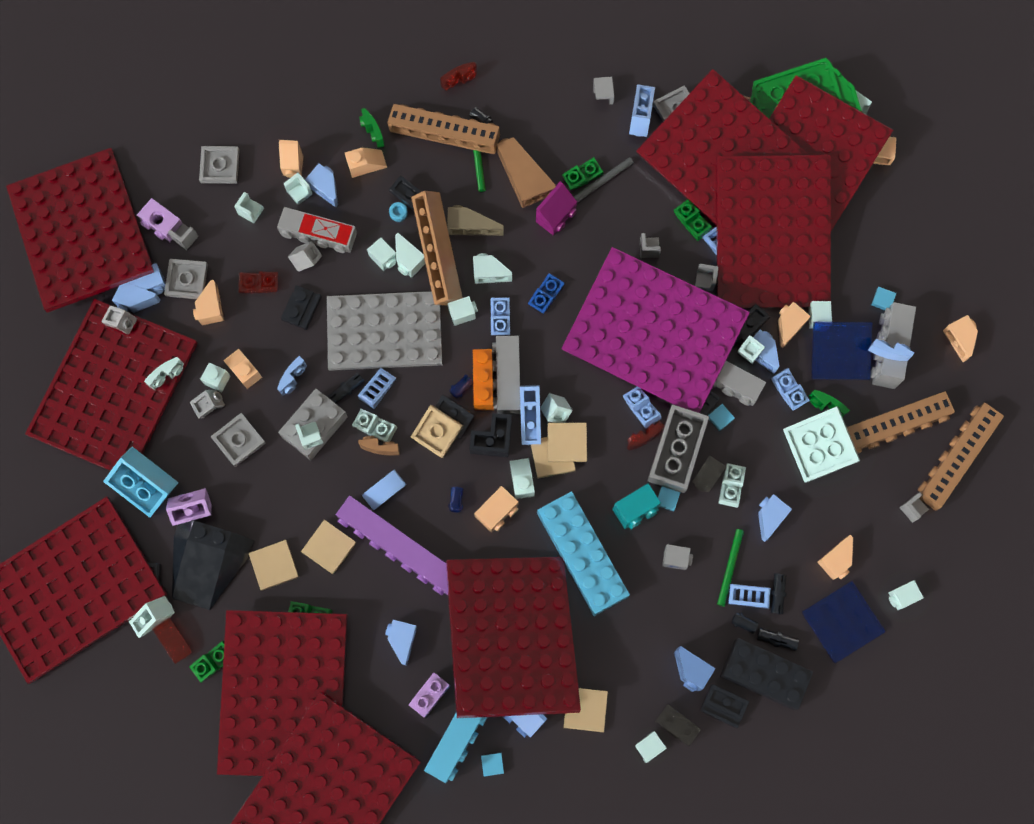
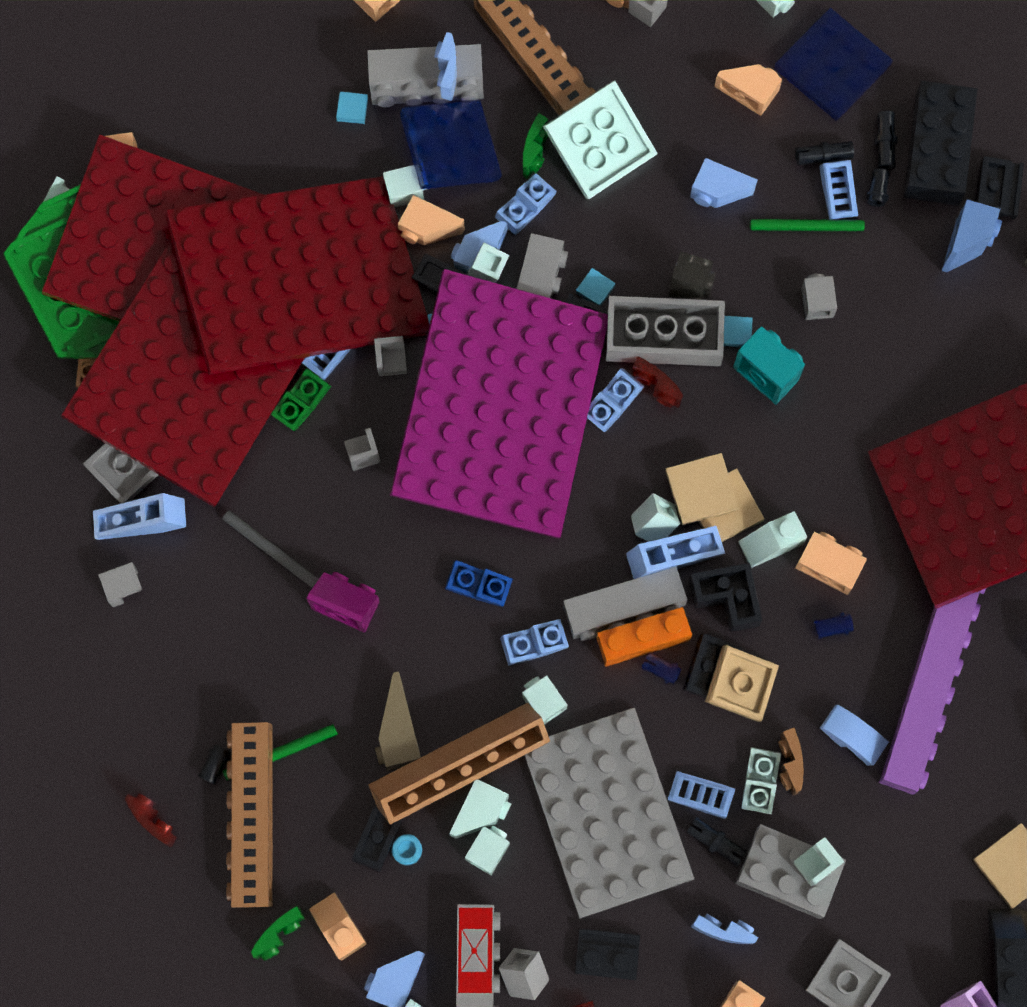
camera: 105 degrees left, 0 degrees up
(328, 547) = (962, 792): tan tile -> none
(490, 270) = (466, 678): light aqua slope -> none
(525, 175) = (294, 669): medium nougat slope -> none
(583, 174) = (269, 581): green slope -> none
(583, 553) = (856, 424): medium azure brick -> none
(732, 485) = (703, 246): light aqua slope -> none

